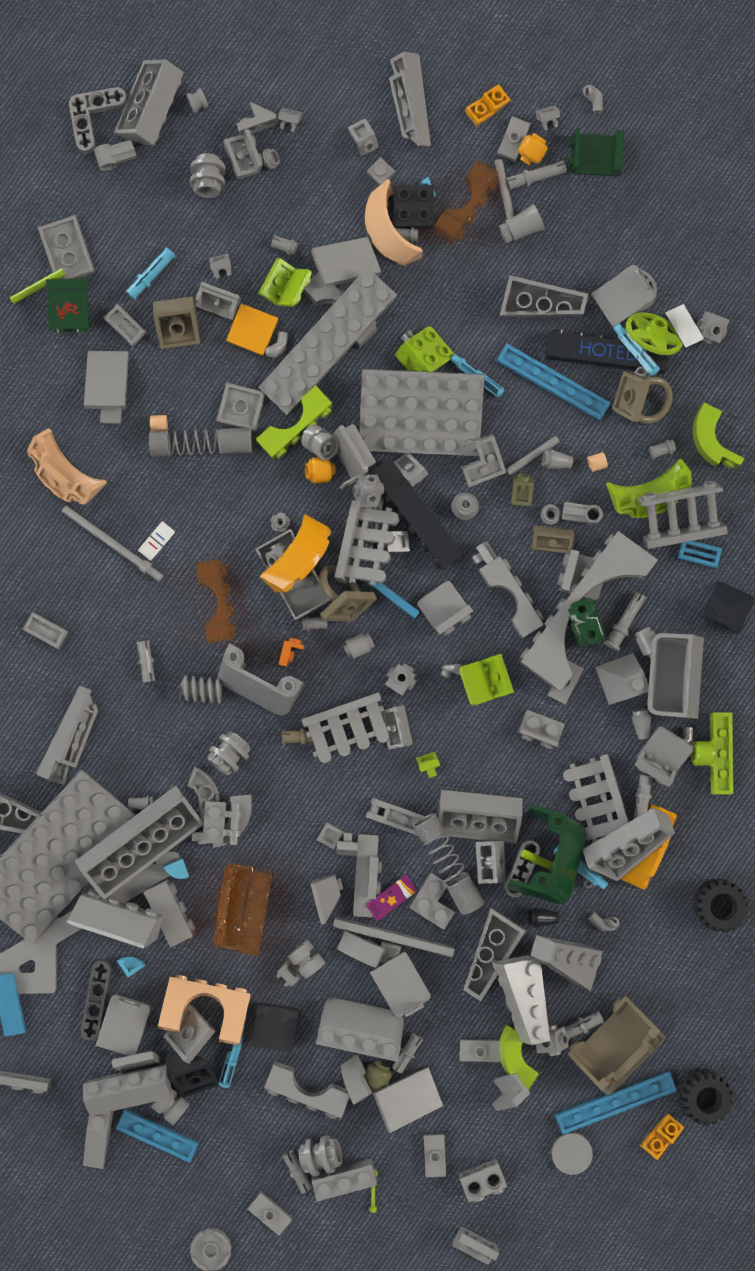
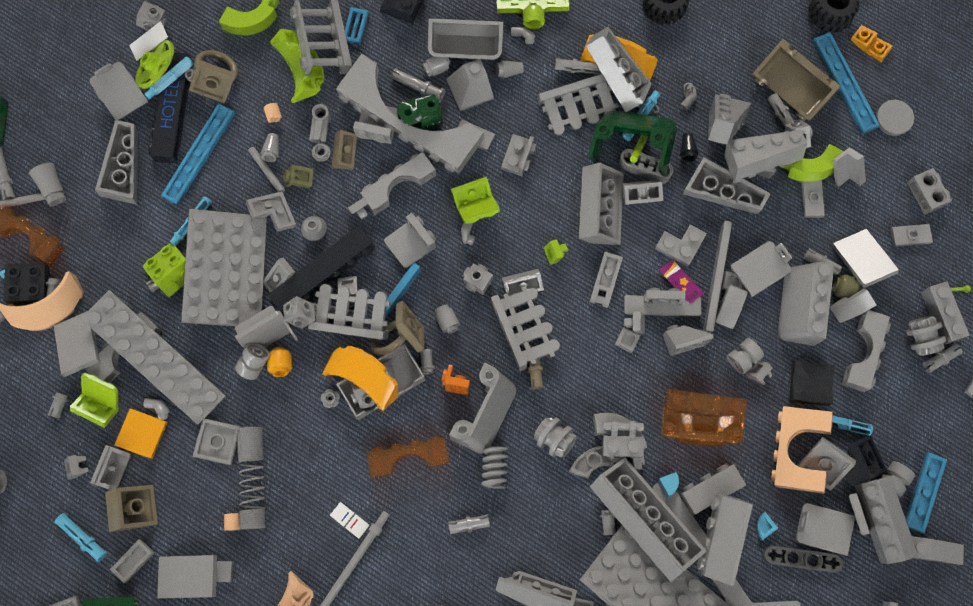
camera: 90 degrees left, 10 degrees down
(275, 440) = (249, 405): lime arch -> none
(460, 888) = (666, 217): light grey piece -> none
(662, 449) = (261, 59): light grey pin -> none
(663, 756) = (537, 48): light grey bracket -> none

